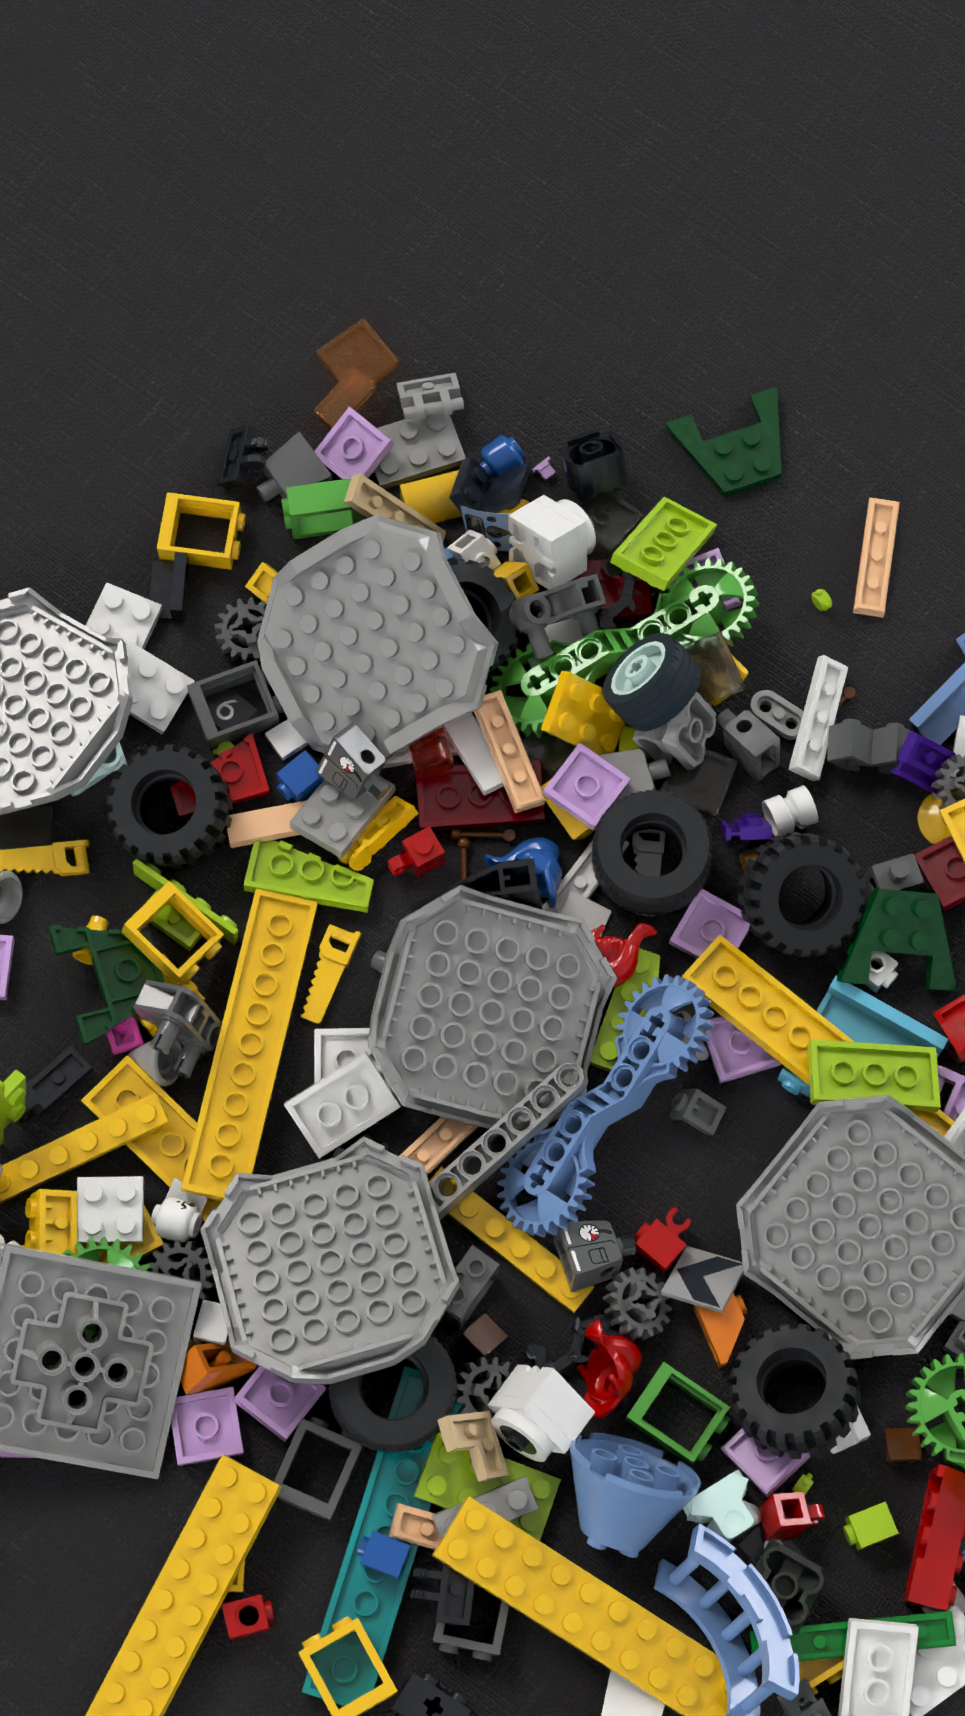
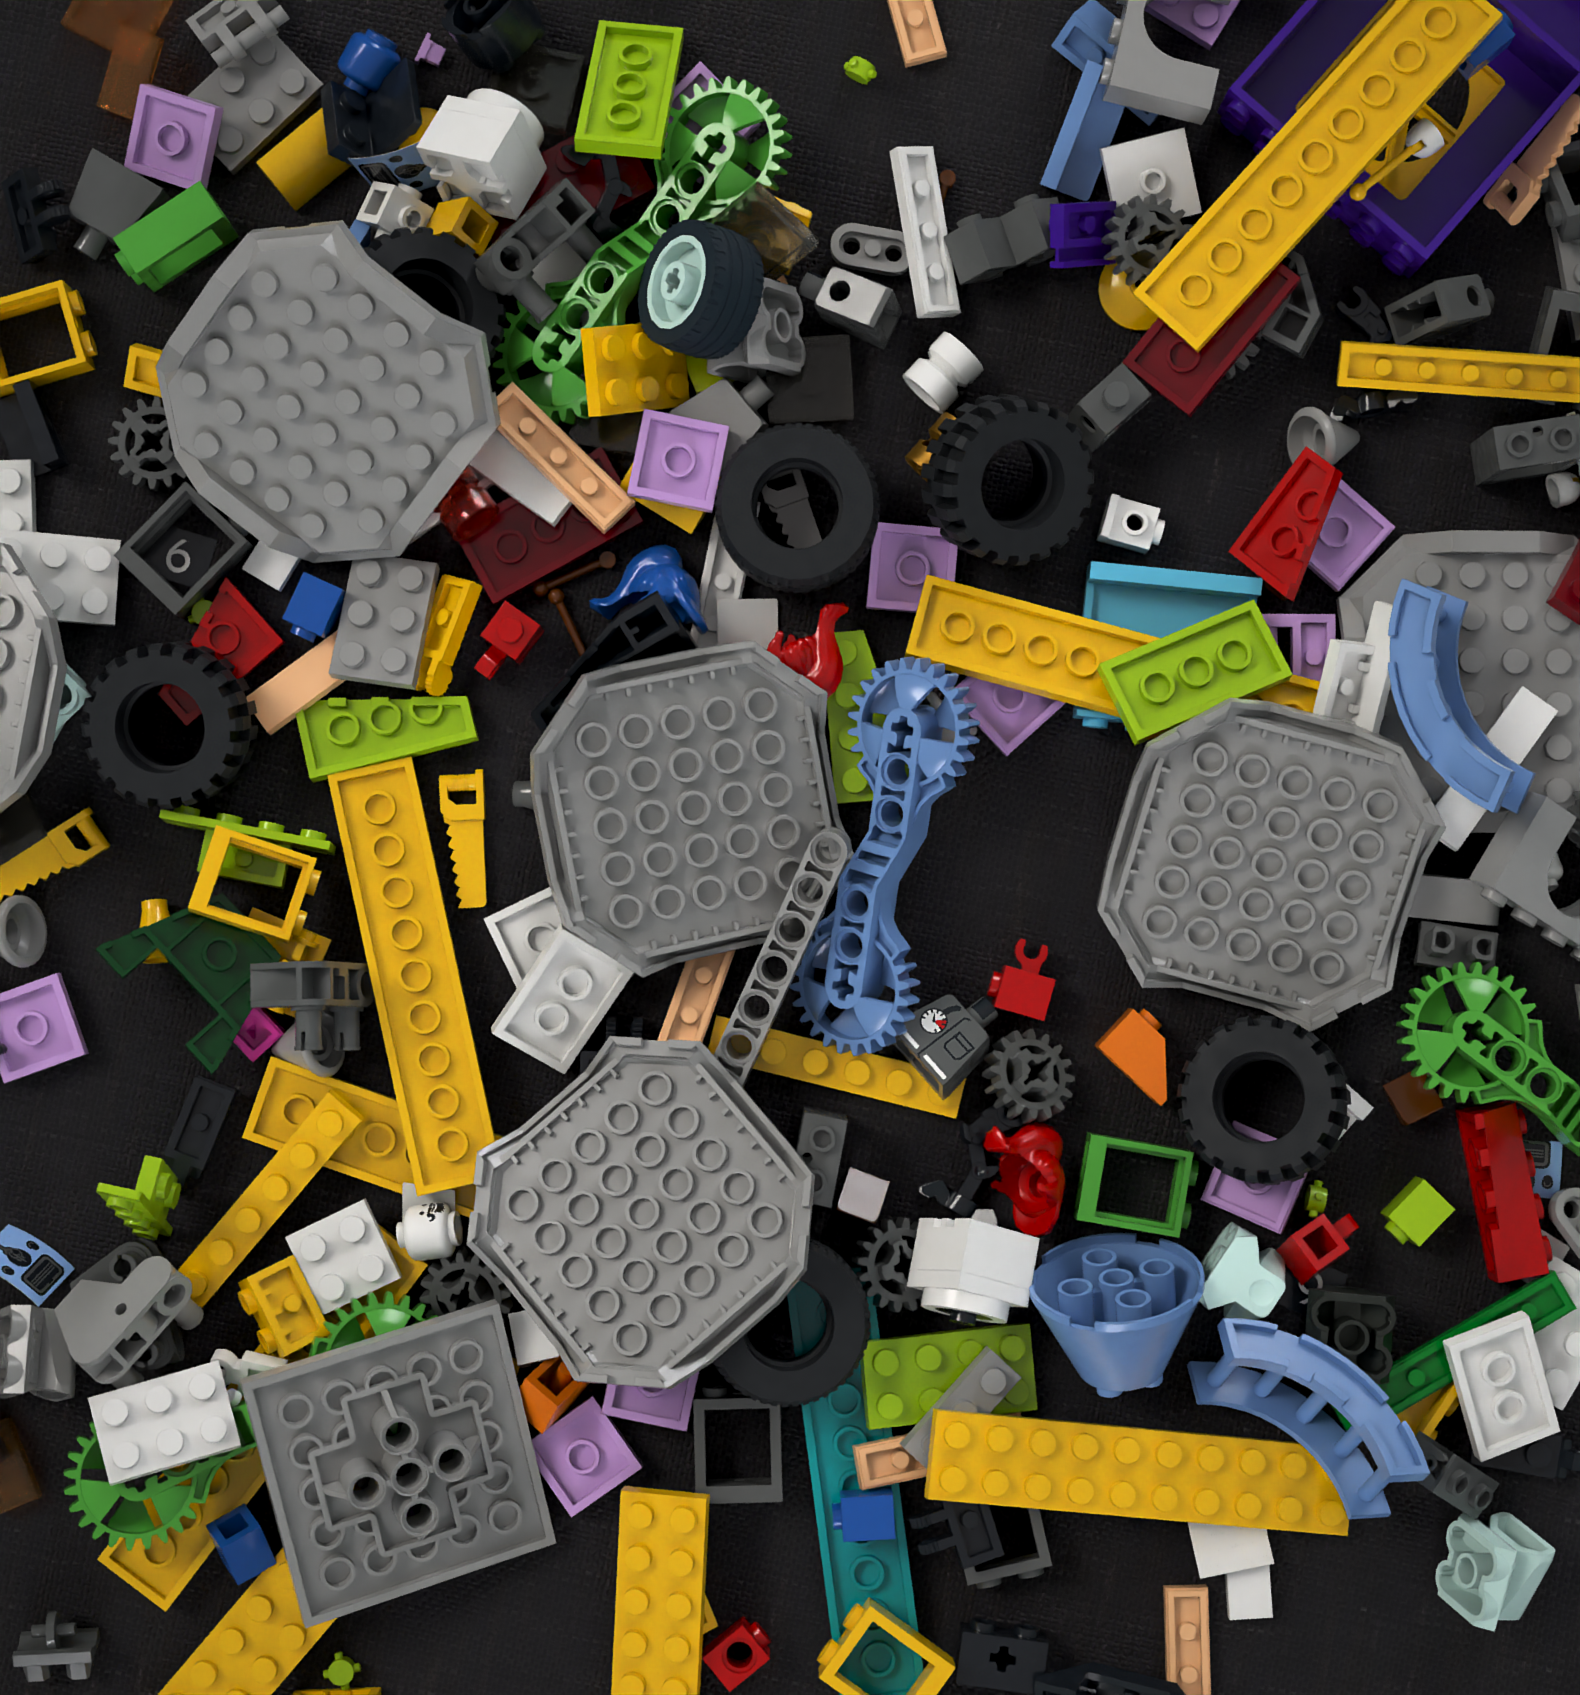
camera: 25 degrees left, 15 degrees up
(353, 764) = (375, 567): dark grey torso -> none
(373, 500) = (254, 207): tan plate -> none
(478, 1436) = (914, 1332): tan plate -> none
(697, 1110) = (994, 804): dark grey bracket -> none
(703, 1279) = (1094, 1011): light grey piece -> none
(748, 828) = (900, 420): dark purple plate -> none
(901, 924) = (1145, 461): dark green wing -> none

